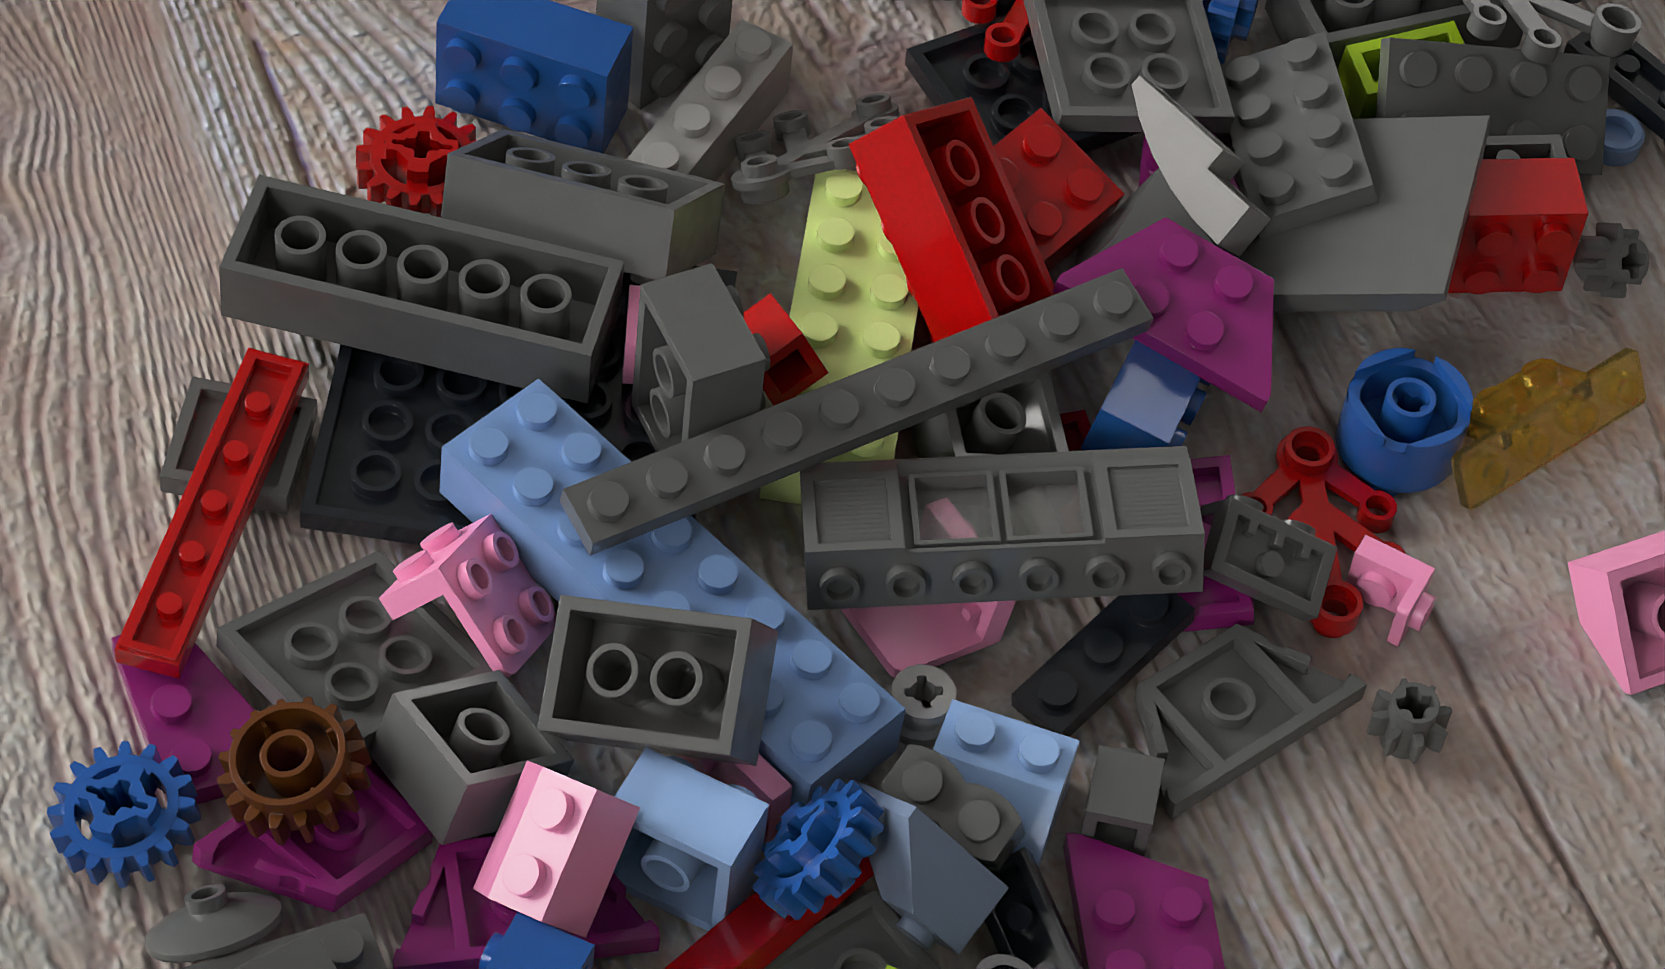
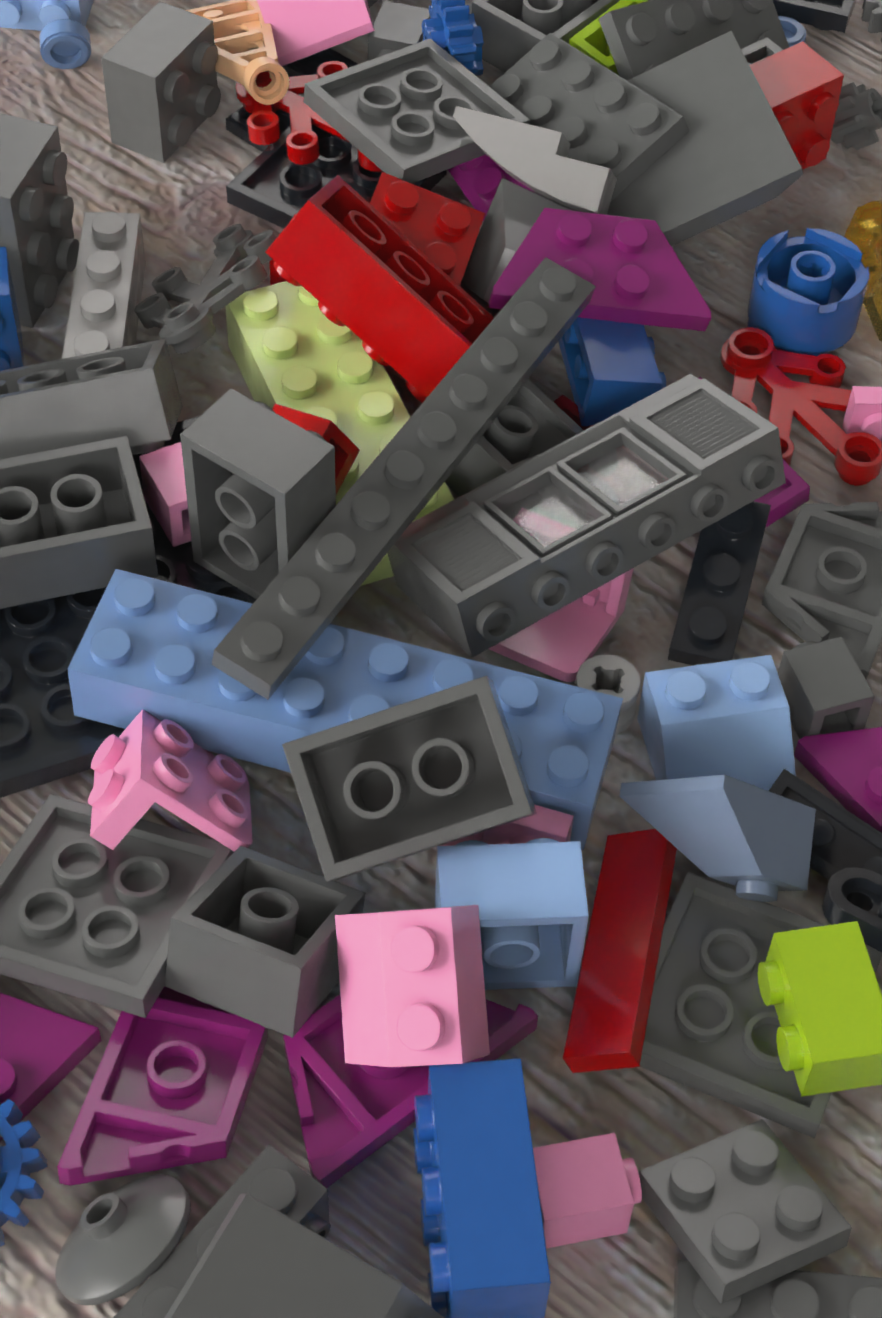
camera: 25 degrees left, 0 degrees up
(325, 761) = (135, 1070): reddish brown gear -> none
(818, 849) = (642, 860): blue gear -> none
(966, 811) = (704, 749): dark grey brick -> none
(1266, 556) = (811, 434): dark grey bracket -> none

